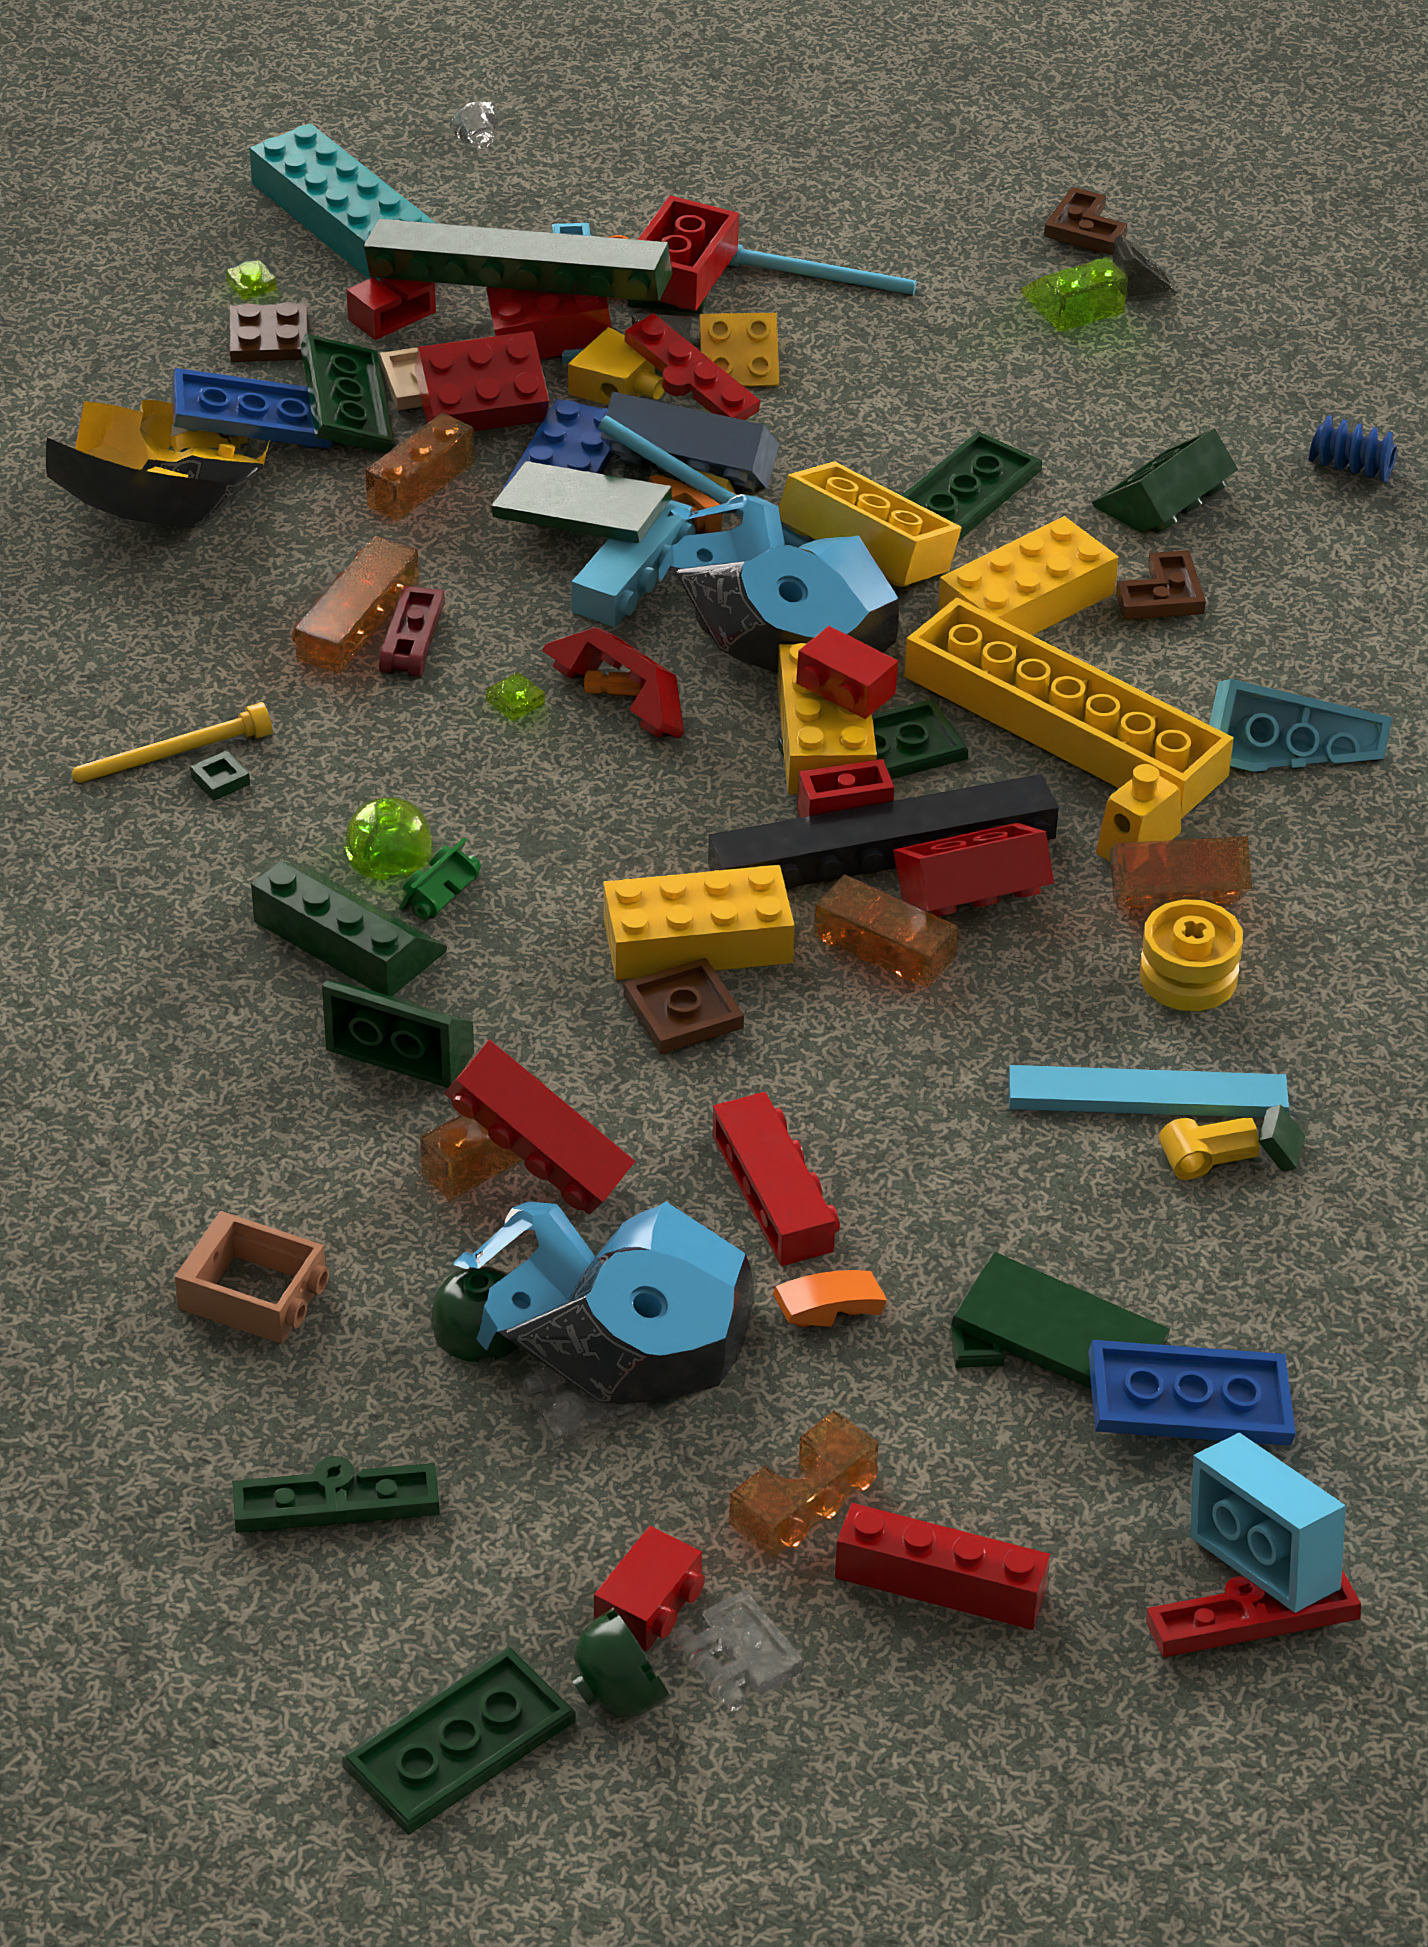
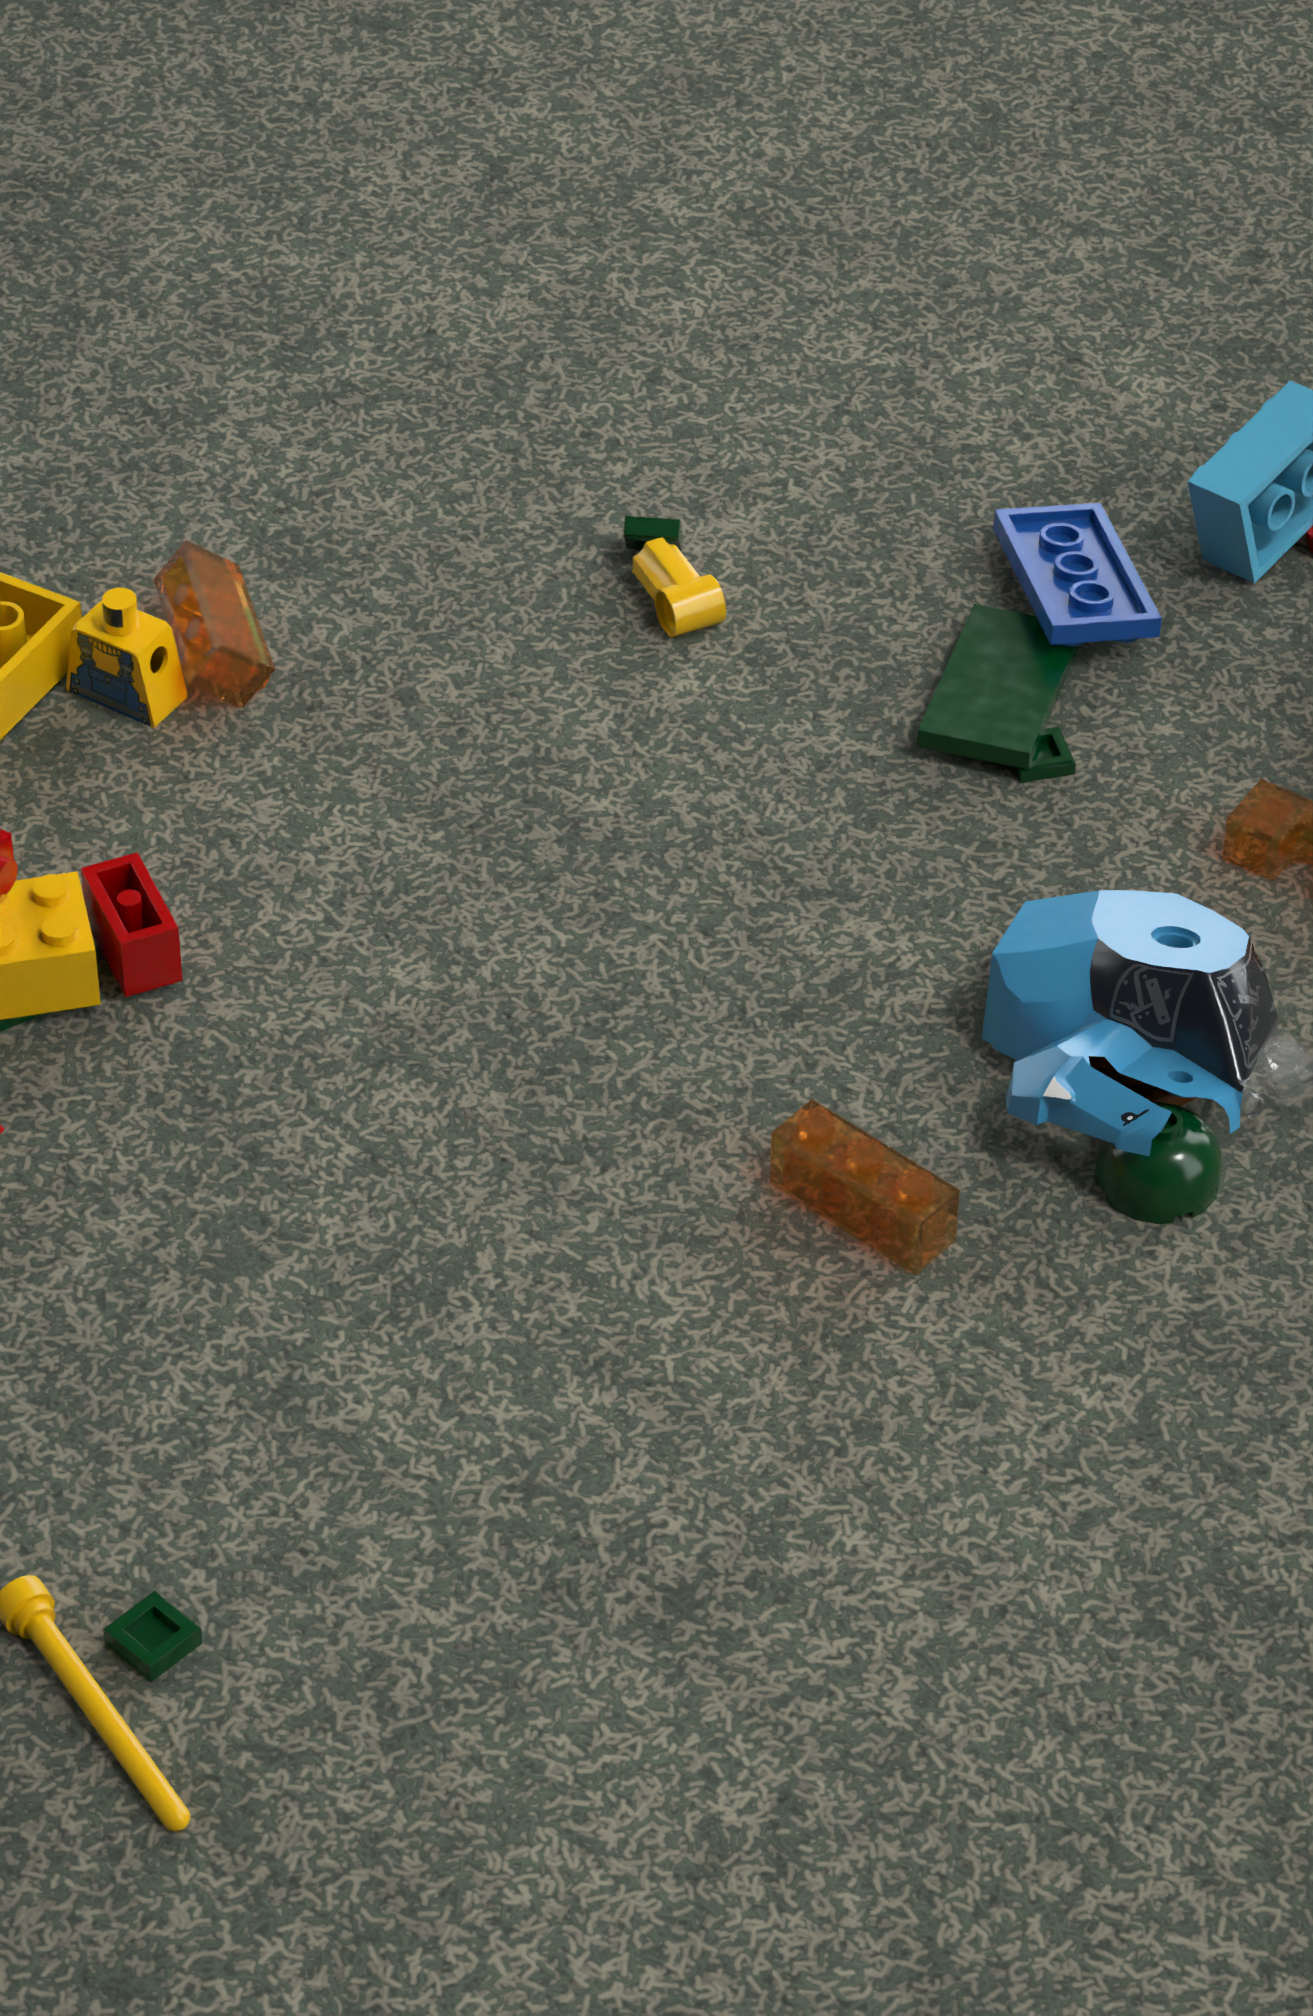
camera: 100 degrees left, 0 degrees up
(280, 1251) = (1173, 1429): nougat window -> none
(341, 928) = (479, 1414): dark green slope -> none
(388, 838) = (277, 1401): clear neon green cylinder -> none
(395, 1033) = (693, 1303): dark green slope -> none
(448, 867) = (352, 1335): green hinge -> none
(538, 1128) = (887, 1099): red brick -> none
(683, 1005) = (552, 1051): reddish brown plate -> none
(717, 915) = (401, 1046): yellow brick -> none
(775, 1178) = (846, 929): red brick -> none
(821, 1296) = (1024, 860): orange slope -> none
(865, 836) = (222, 950): black brick -> none
(885, 931) = (372, 877): clear orange brick -> none
(974, 868) = (265, 783): red brick -> none
(1145, 1091) = (590, 653): medium azure tile -> none
(1191, 955) = (368, 608): yellow wheel -> none

